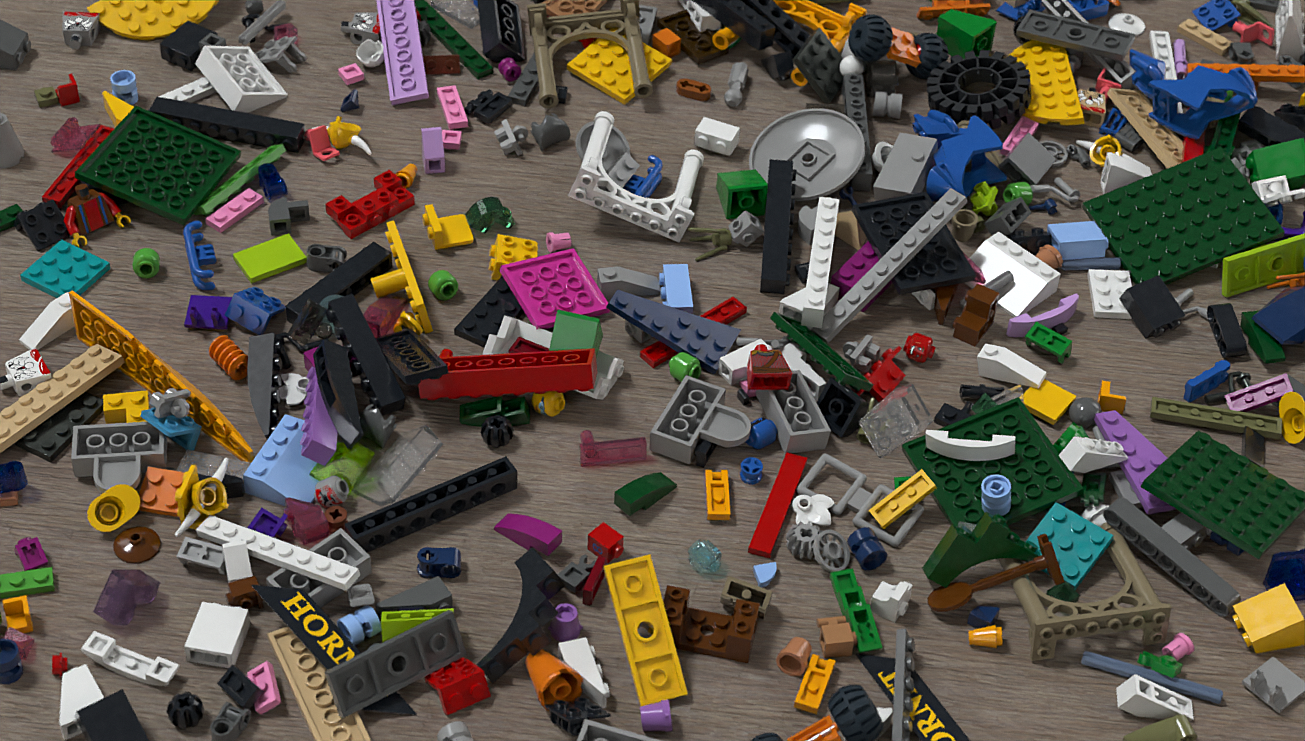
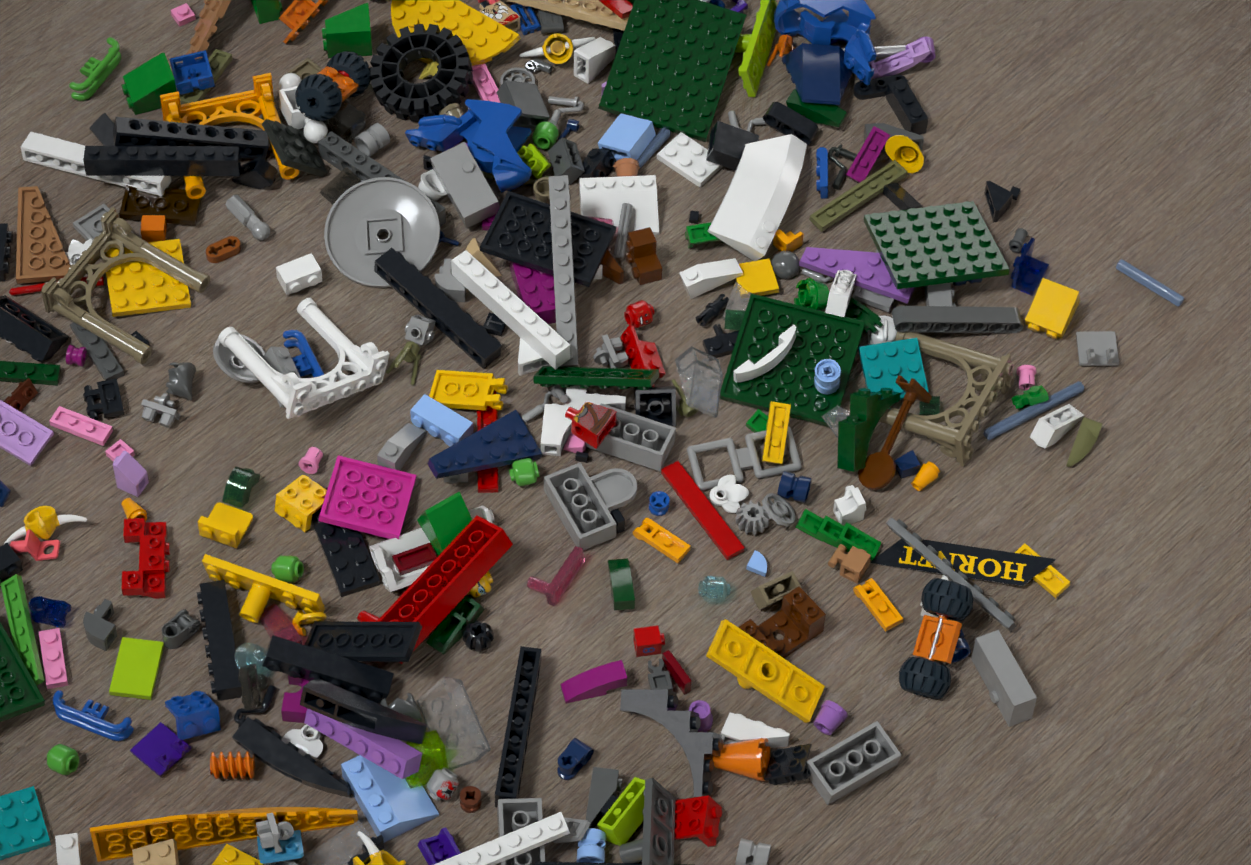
camera: 50 degrees left, 10 degrees up
(306, 519) = (456, 817): clear pink slope -> none
(723, 289) = (468, 390): none -> yellow tile
(742, 192) = (376, 303): green slope -> none
(762, 433) = (633, 466): blue head -> none
(794, 656) = (848, 599): nougat piece -> none
(1020, 325) = (678, 232): lavender slope -> none
(1127, 346) = (759, 194): none -> white slope

